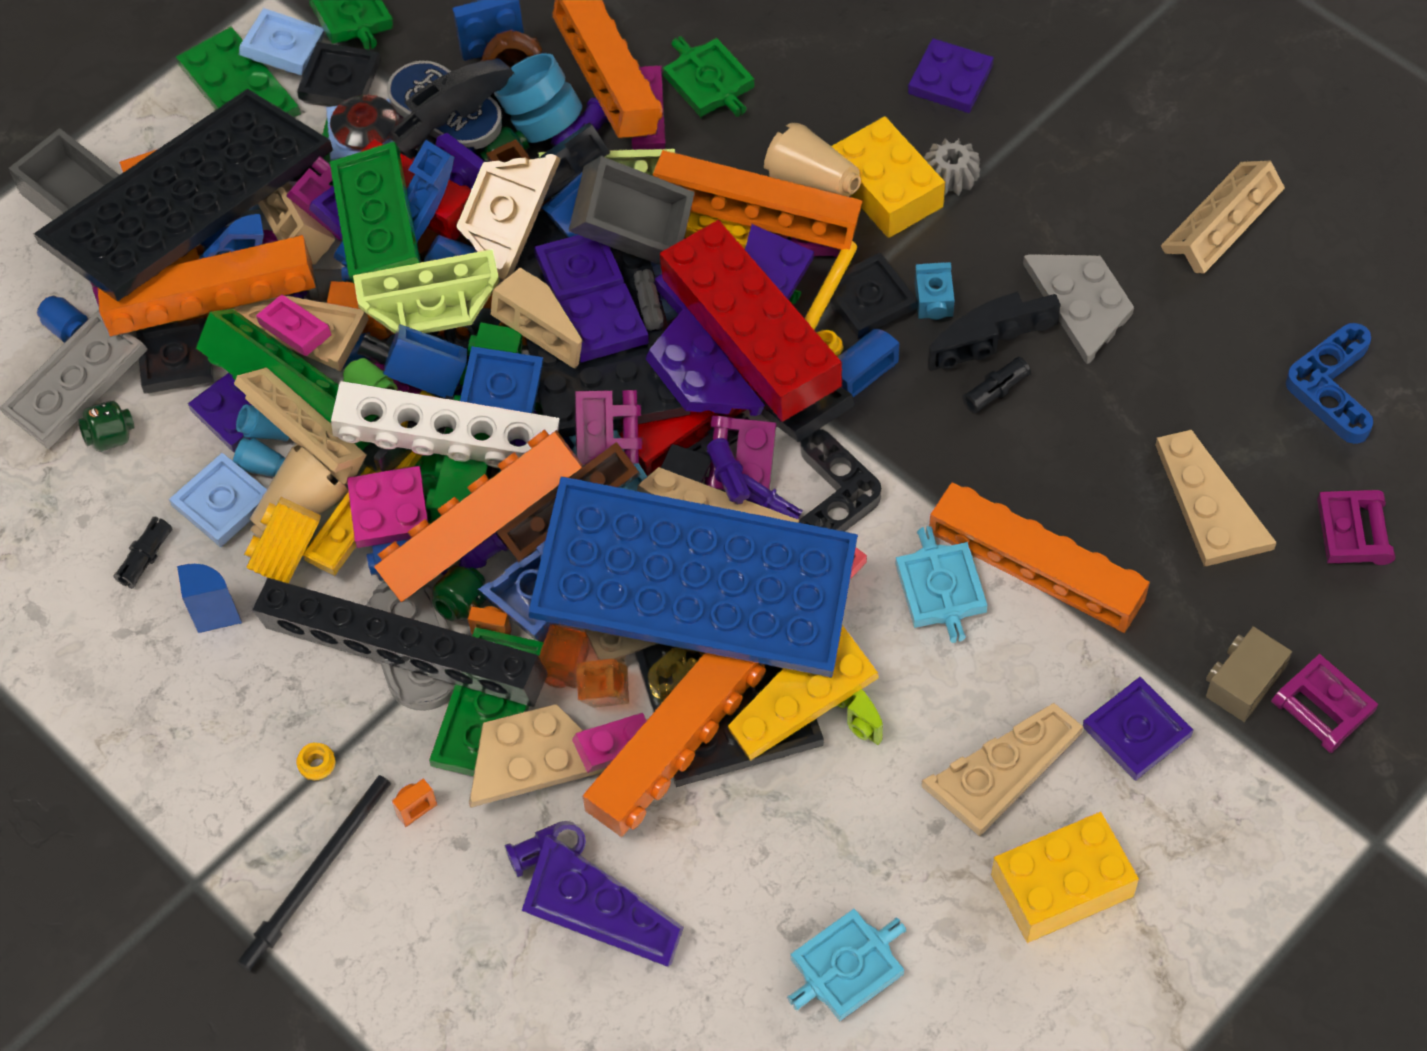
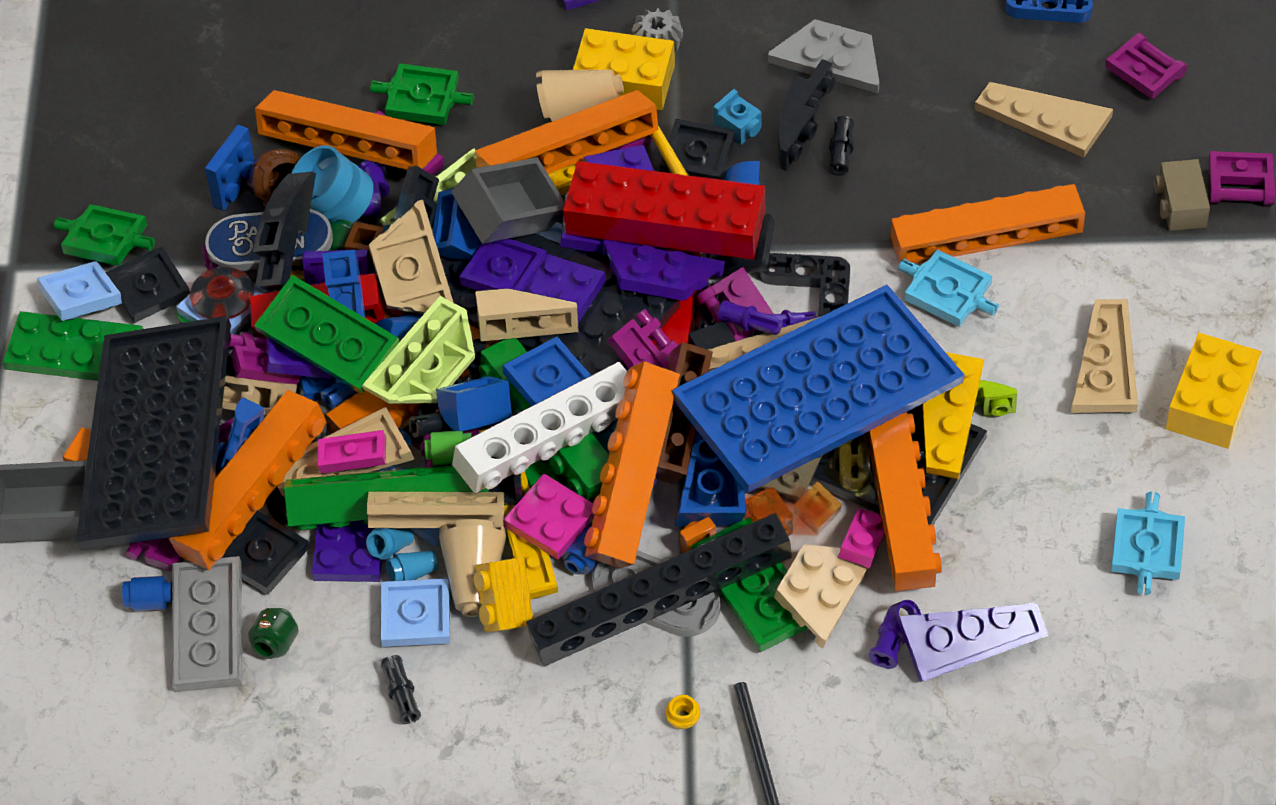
camera: 45 degrees left, 5 degrees down
(207, 597) = (494, 670): blue brick -> none
(414, 801) = (778, 678): orange plate -> none
(458, 593) = (659, 534): dark green head -> none
(648, 300) = (574, 252): dark grey axle -> none
(1137, 728) = (1156, 276): dark purple plate -> none

